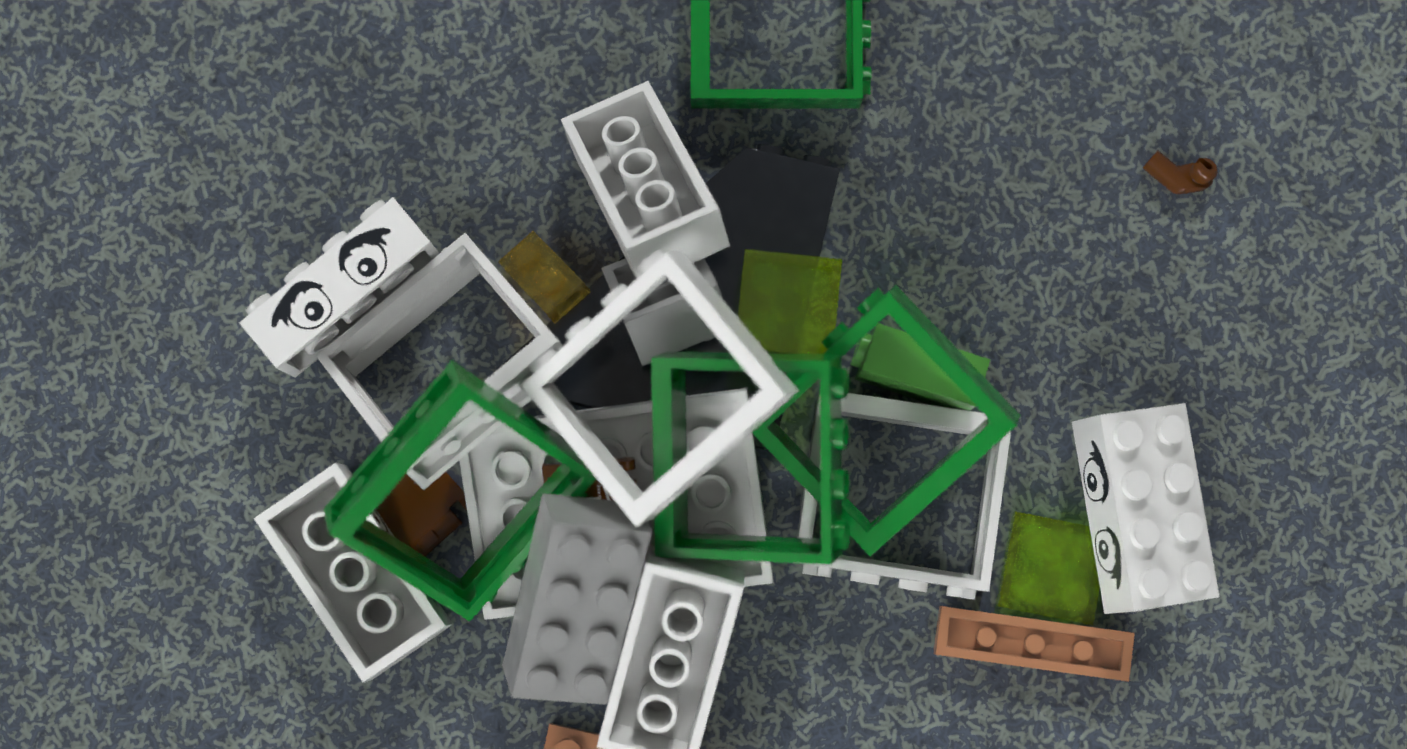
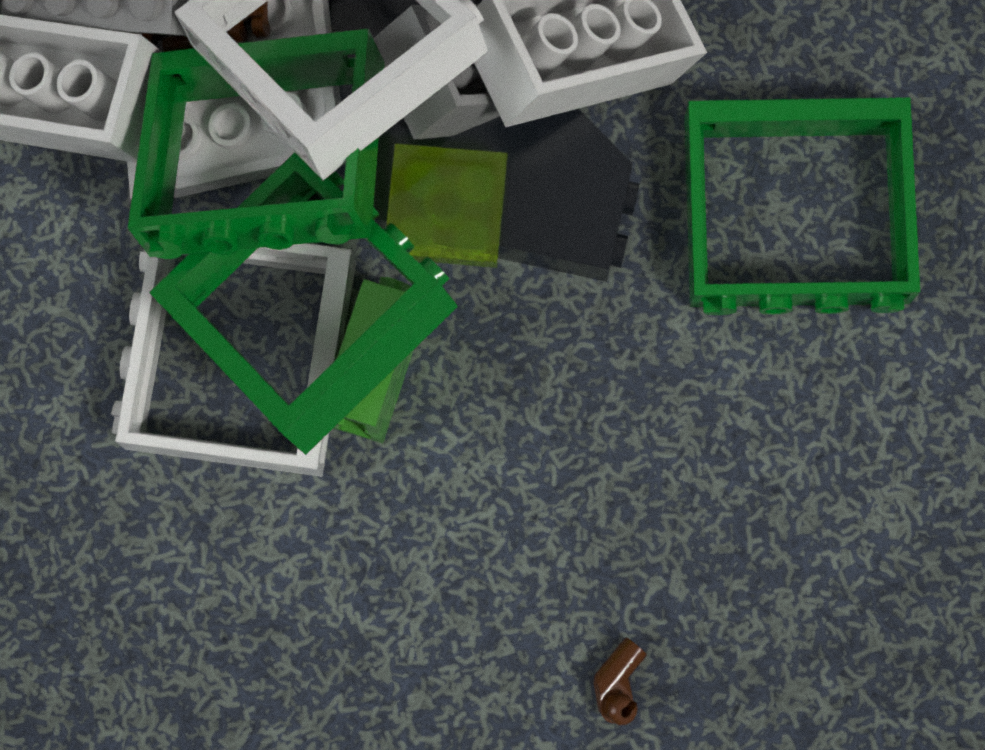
camera: 95 degrees right, 5 degrees down
(1034, 643) = (60, 503): nougat plate -> none
(1049, 569) = (148, 527): clear neon green plate -> none
(1145, 509) = (207, 627): white brick -> none

